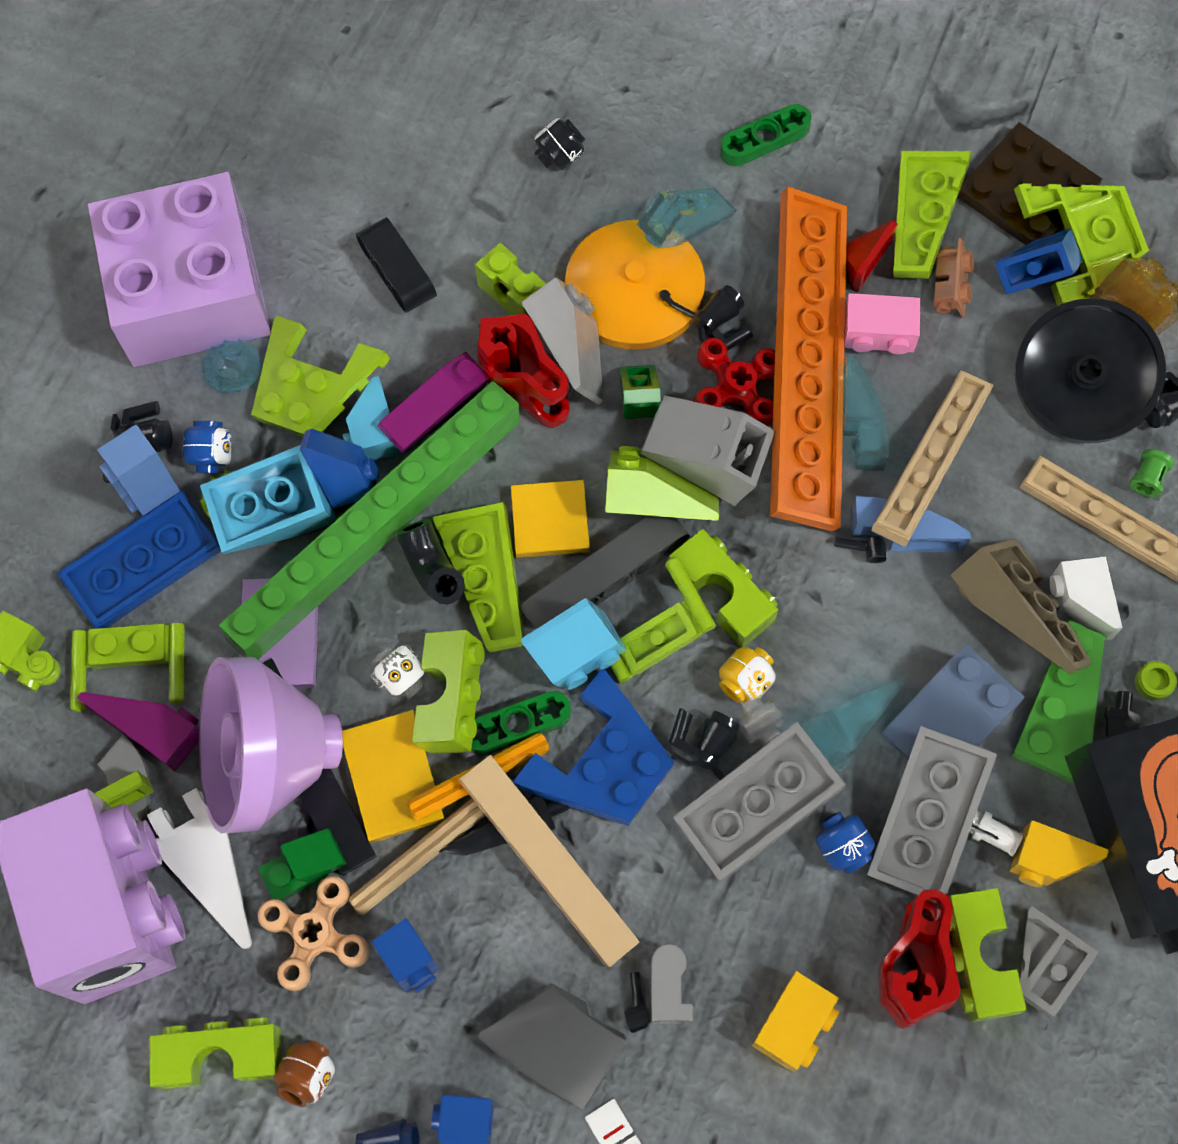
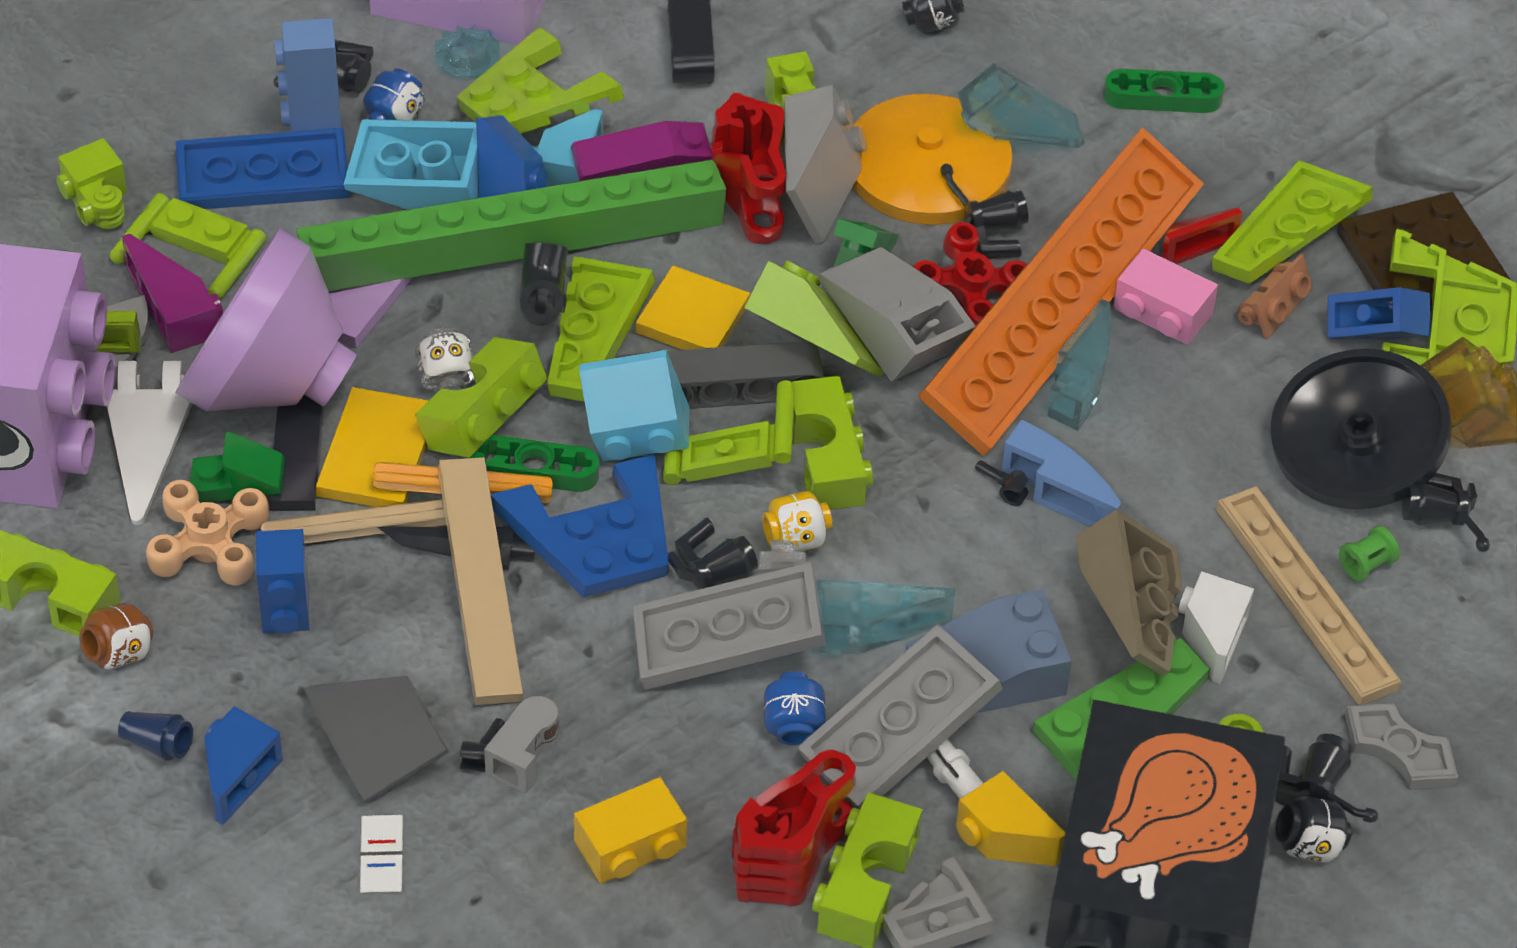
camera: 25 degrees right, 20 degrees down
(932, 459) = (1130, 427): tan tile -> none

